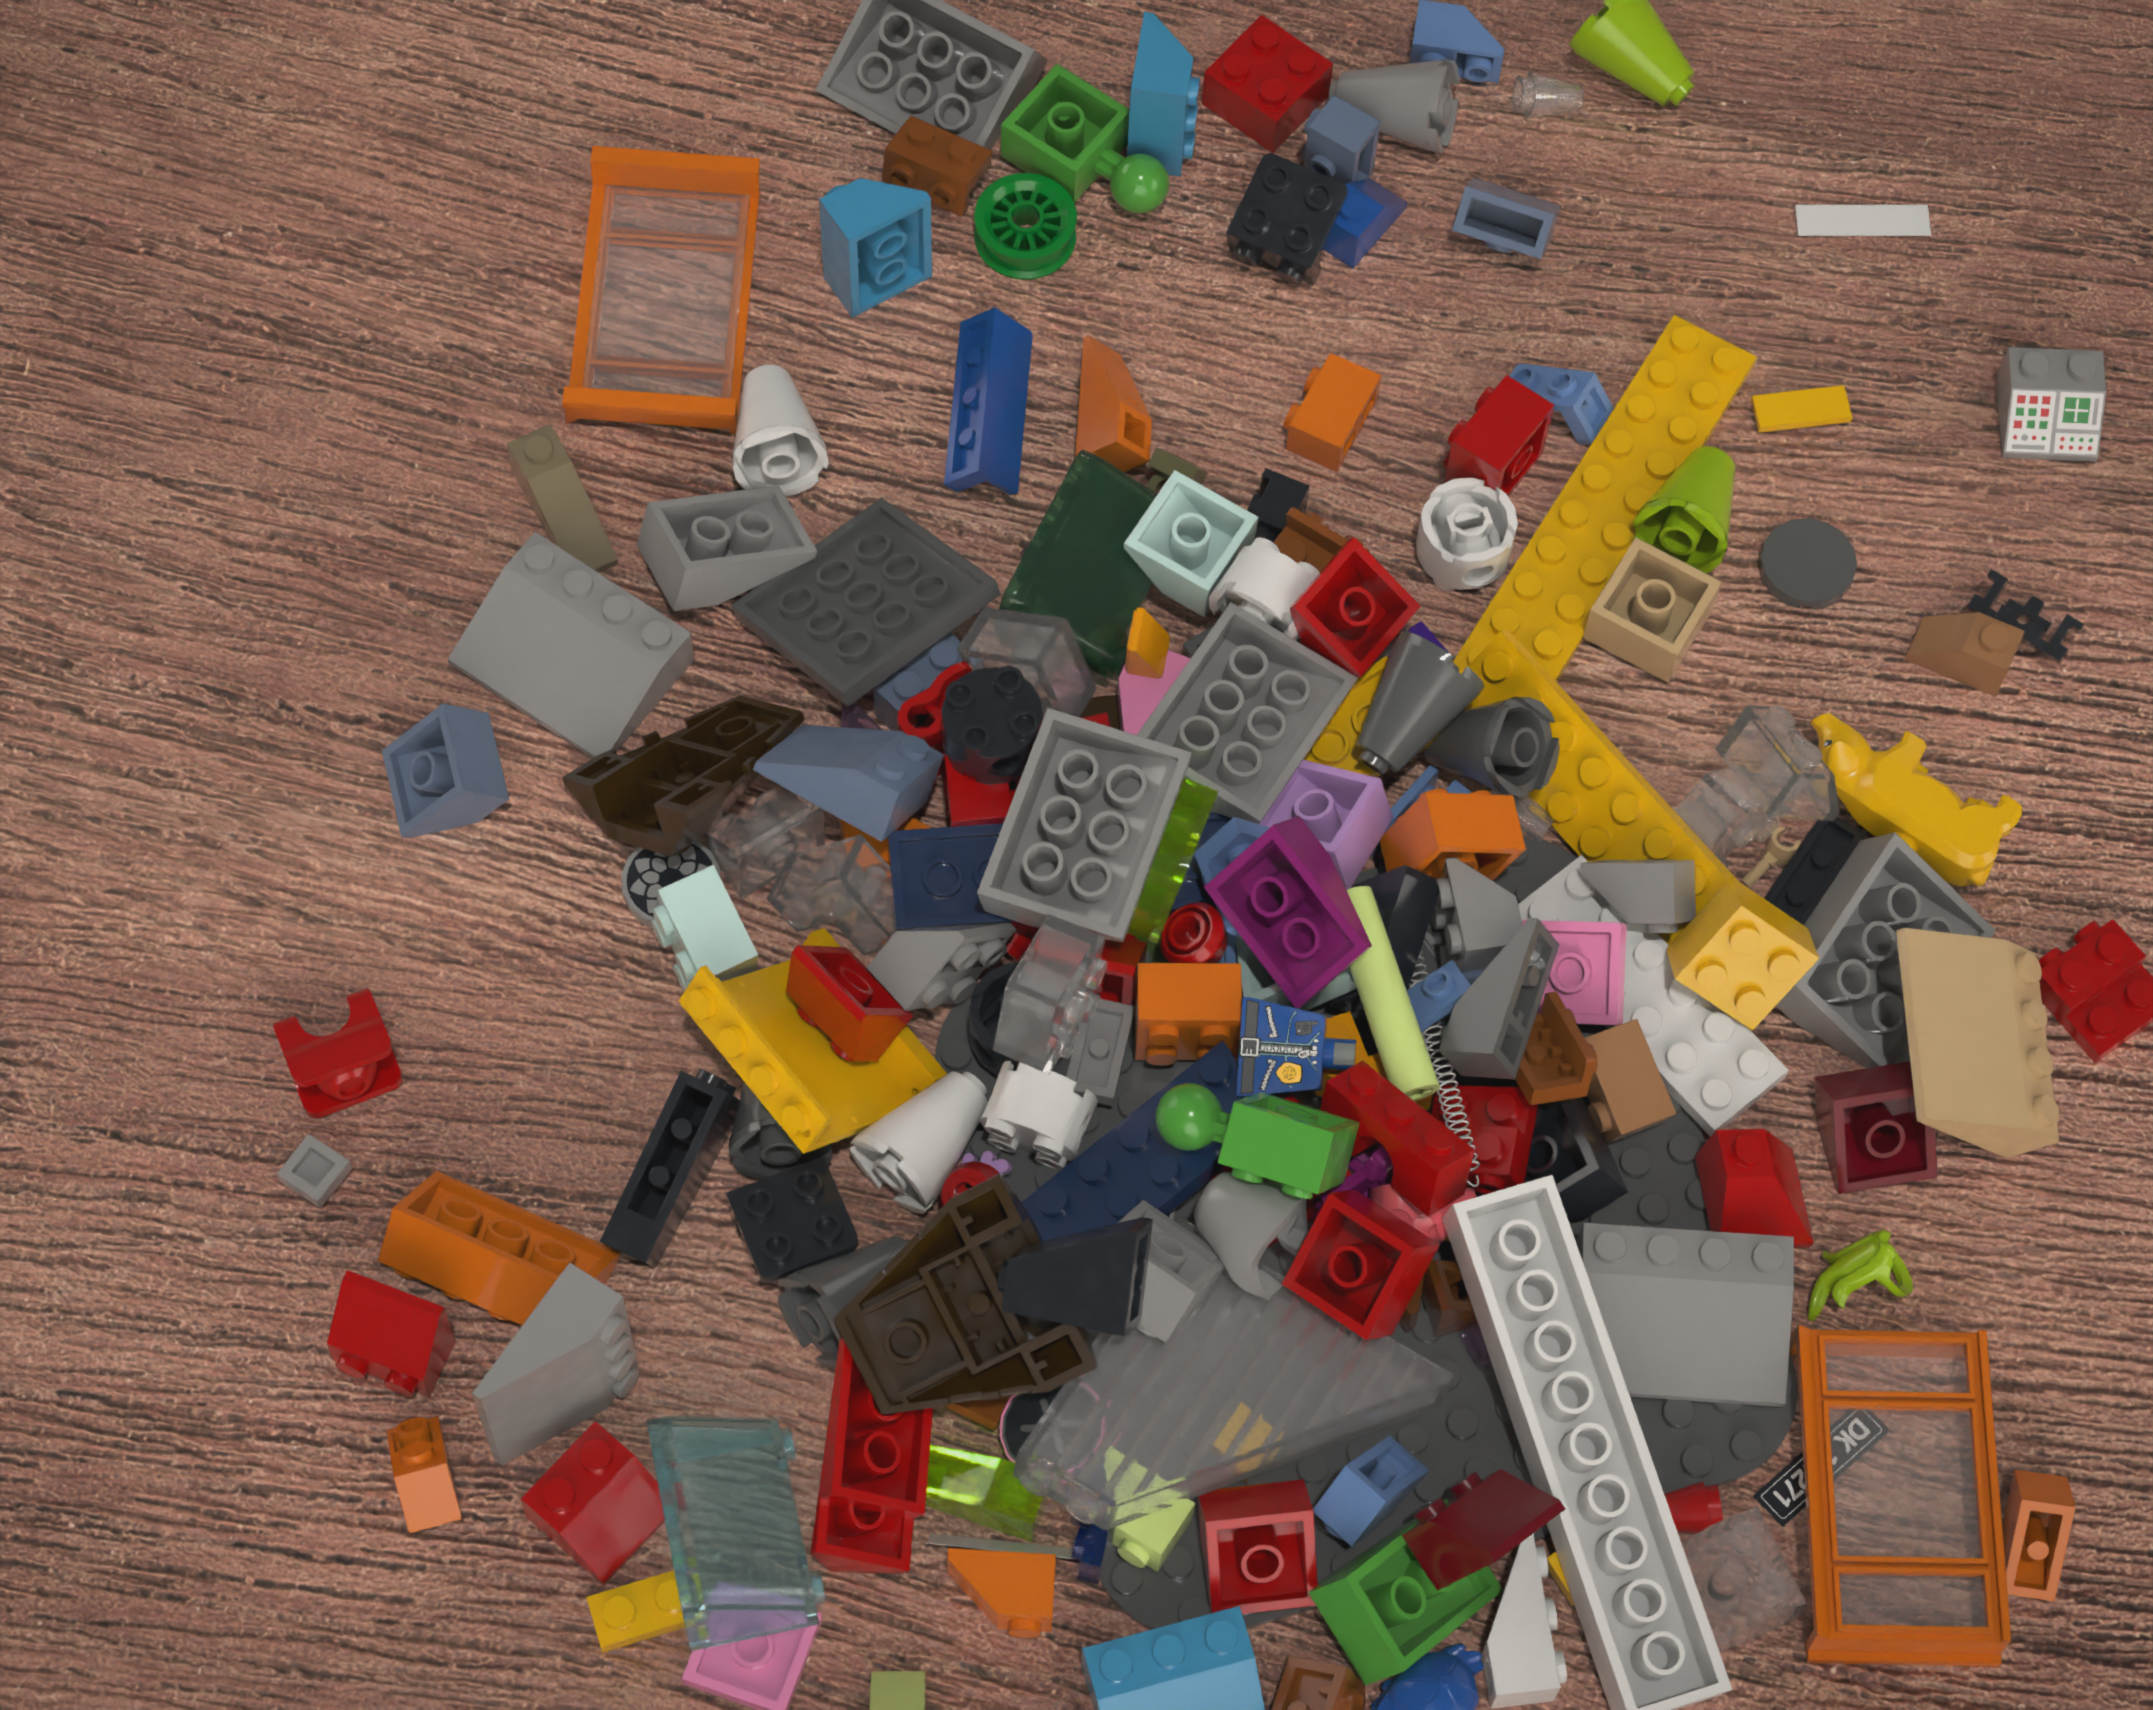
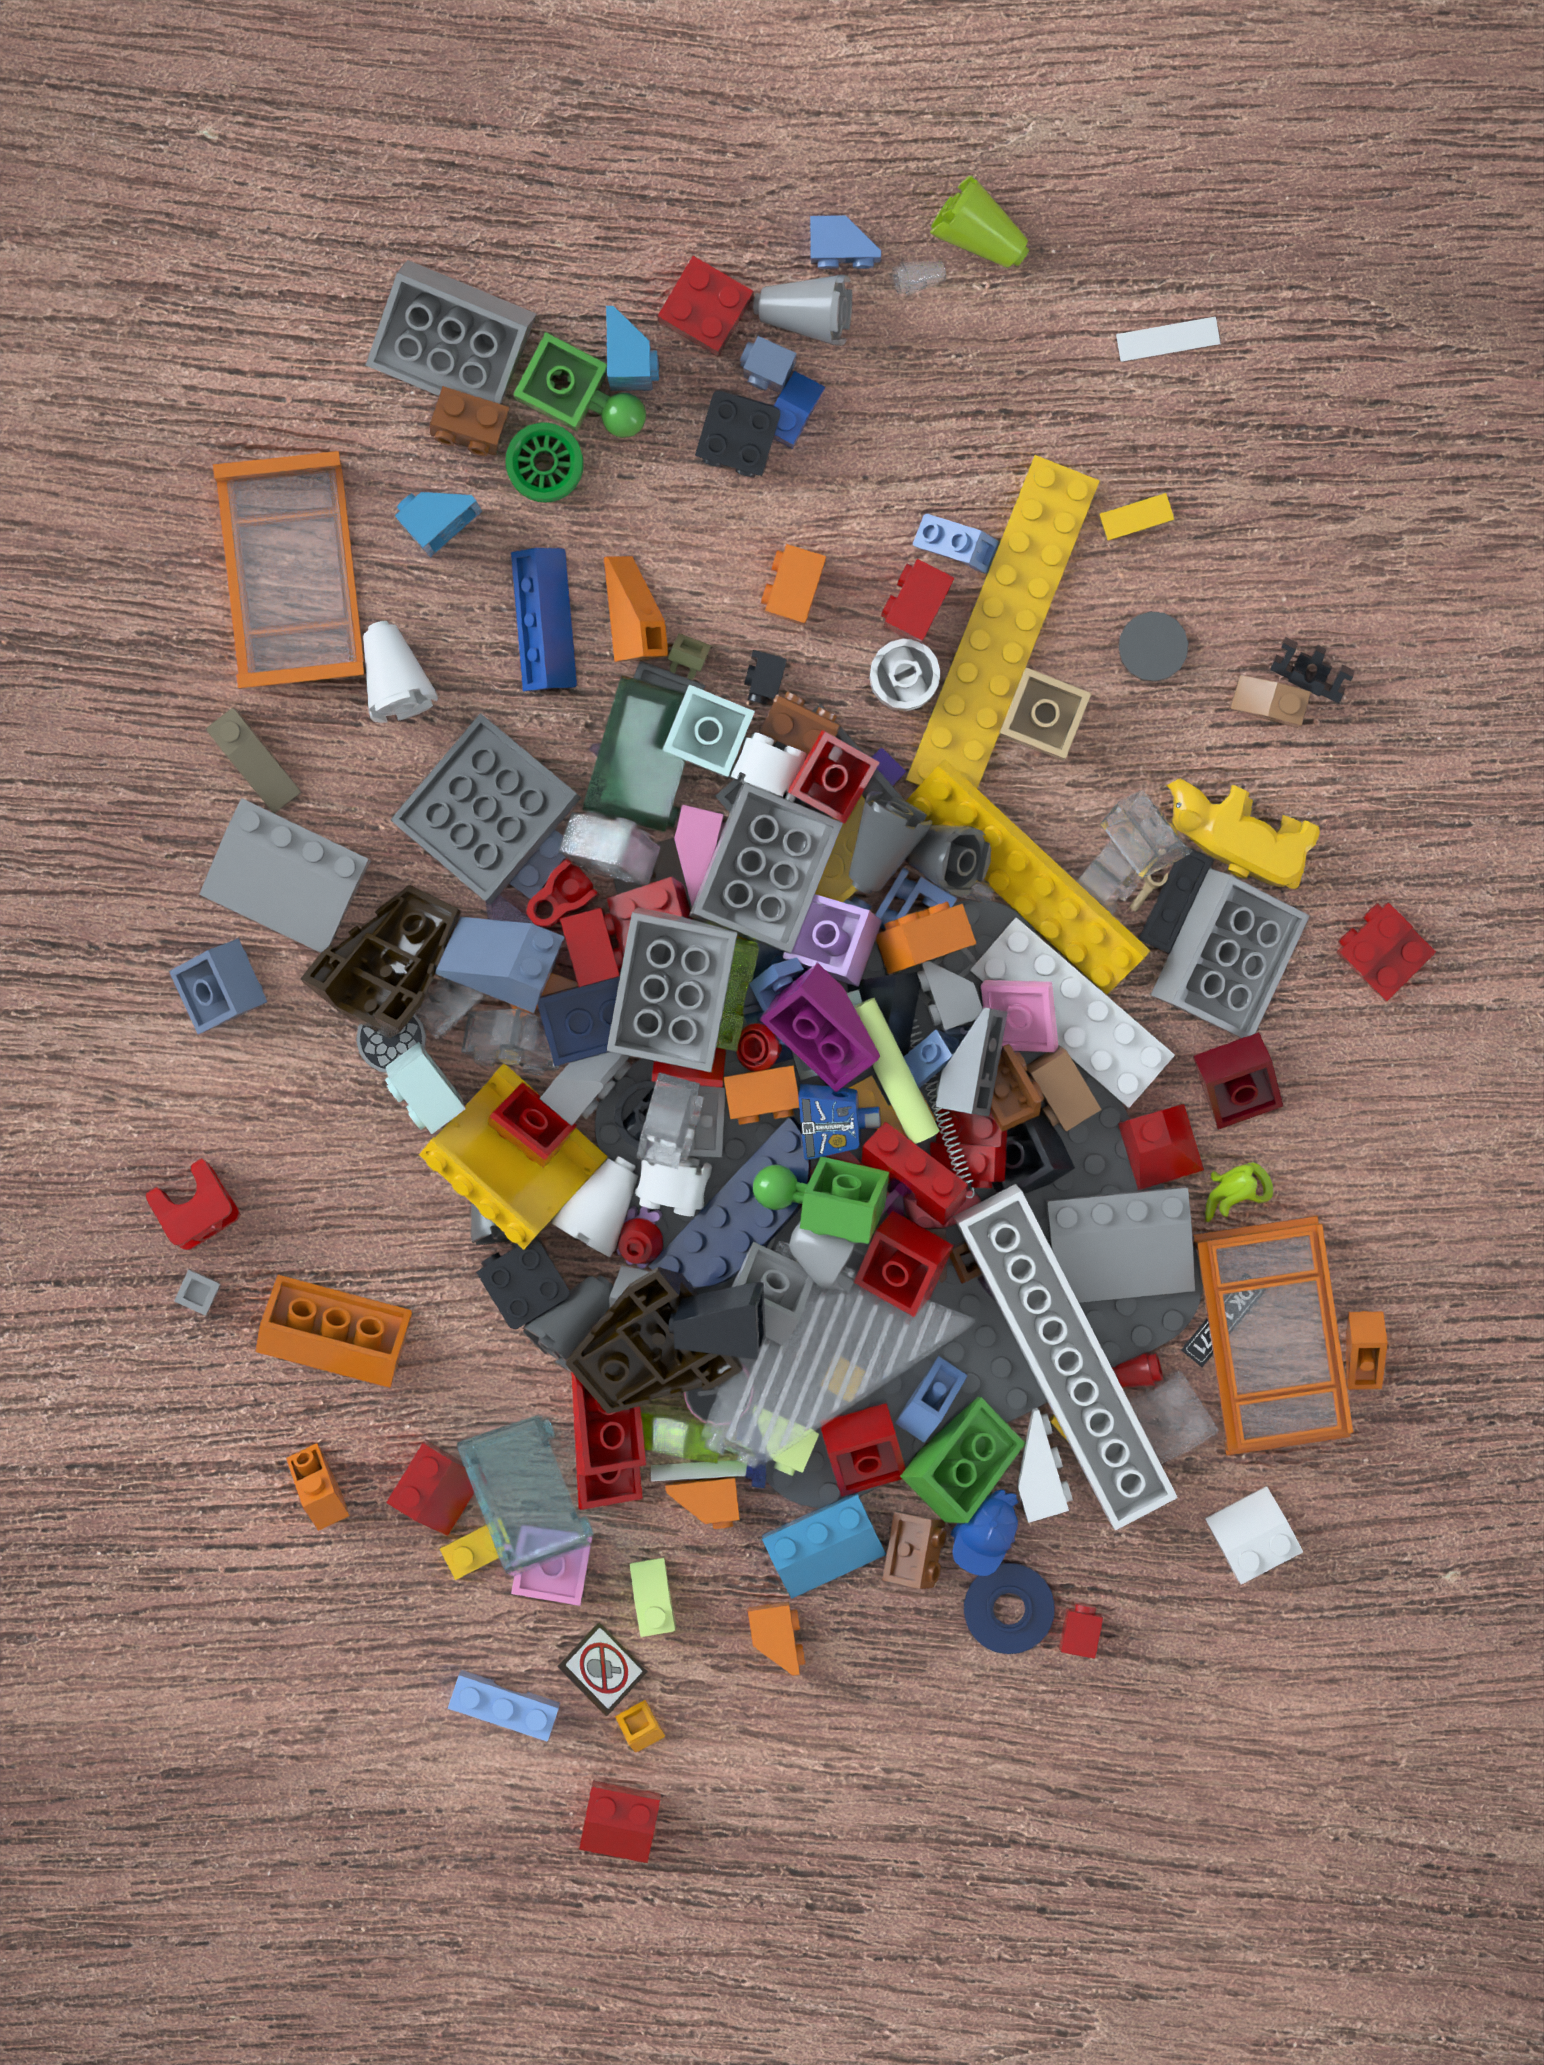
camera: 10 degrees left, 25 degrees up
(389, 1336) = (275, 1404): red slope -> none
(558, 1366) = (403, 1407): light grey slope -> none
(672, 1166) = (435, 1255): black slope -> none
(721, 544) = (376, 774): light grey slope -> none
(990, 724) = (594, 918): black brick -> none
(1146, 646) = (691, 816): light orange slope -> none
(1477, 1524) = (1004, 1422): dark red slope -> none
(1506, 218) = (901, 398): sand blue brick -> none
(1646, 890) = (1061, 945): light grey slope -> none
(1692, 510) = (1064, 625): lime cone -> none
(1742, 953) = (1133, 985): yellow brick -> none
(1978, 1040) = (1299, 1018): tan slope -> none
(2051, 403) = (1319, 486): slope -> none

